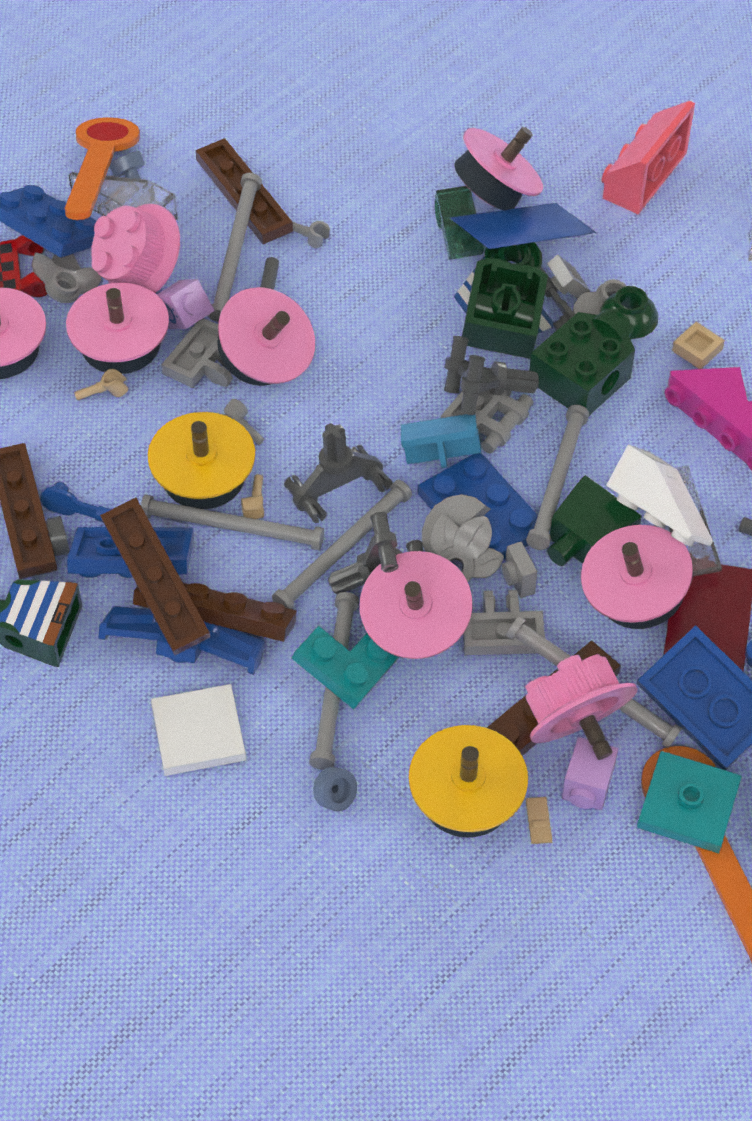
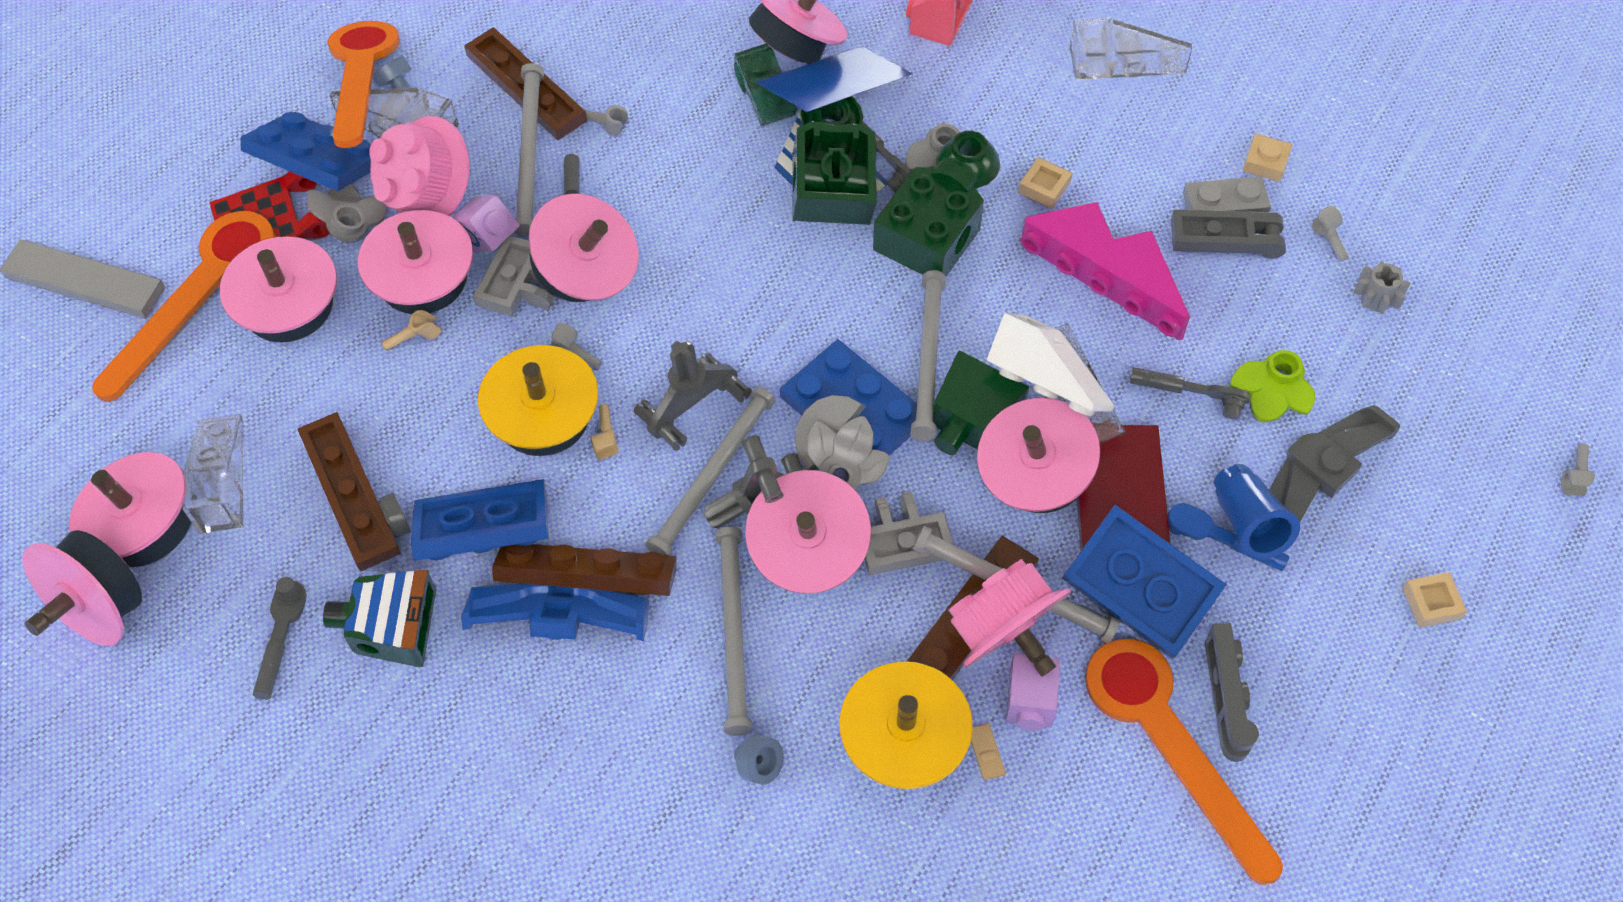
camera: 10 degrees left, 5 degrees up
(63, 502) = (388, 472): blue piece -> none
(155, 576) = (514, 550): reddish brown plate -> none
(198, 729) = (593, 715): white tile -> none
(233, 522) = (584, 465): light grey bar -> none
(343, 671) = (741, 620): teal plate -> none
(440, 439) = (795, 333): dark azure panel -> none
(479, 378) = (826, 259): dark grey axle -> none
(487, 405) = (825, 286): light grey plate -> none
(519, 570) = (909, 468): light grey plate -> none
(566, 277) = (892, 129): light grey plate -> none
(689, 801) = (1145, 703): teal plate -> none

